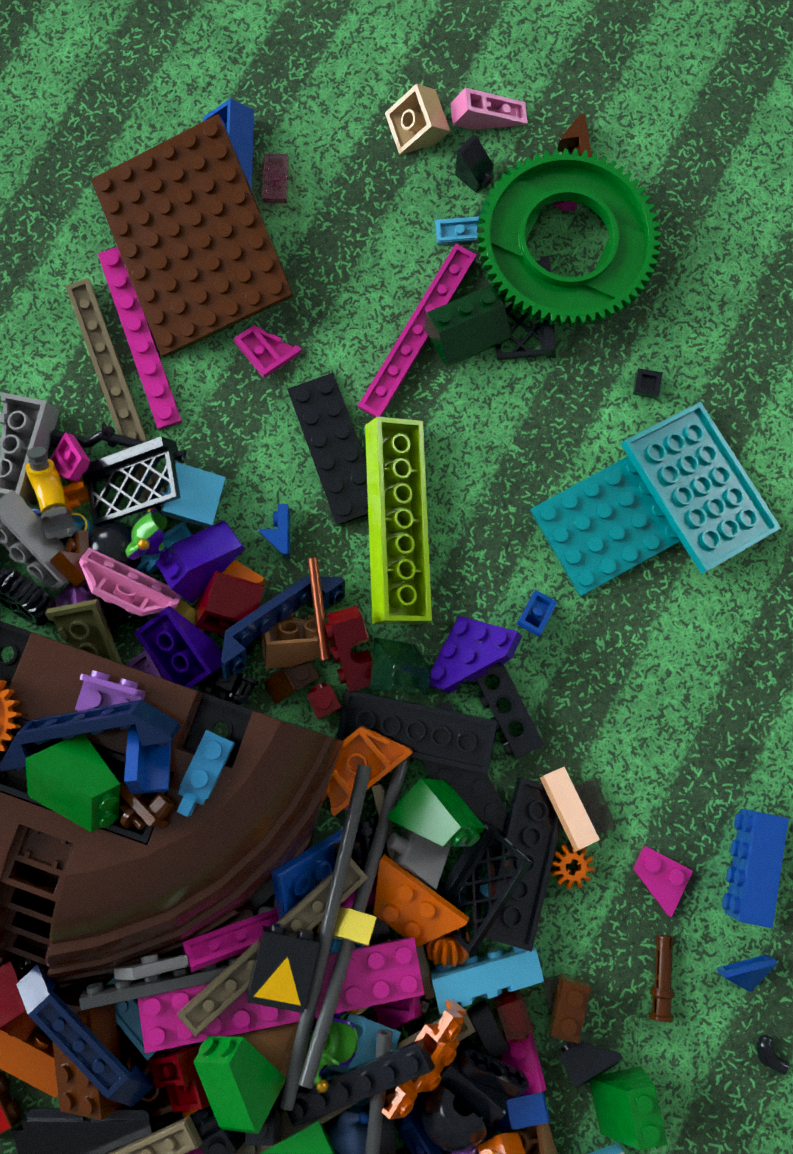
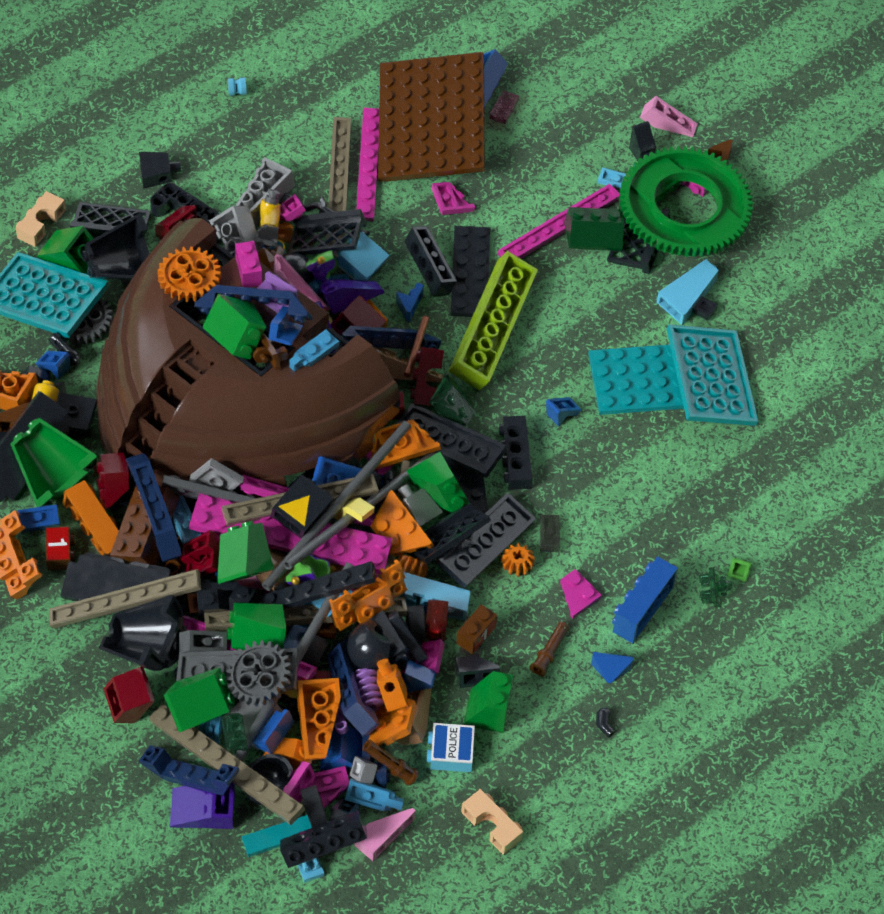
camera: 15 degrees right, 25 degrees down
(48, 667) = (248, 264): none -> dark pink brick
(280, 461) = (430, 261): none -> black brick
(417, 119) = (617, 107): tan slope -> none
(470, 652) = (506, 408): dark purple plate -> none
(569, 809) = (532, 522): light nougat tile -> none
(617, 373) = (686, 291): none -> medium azure slope

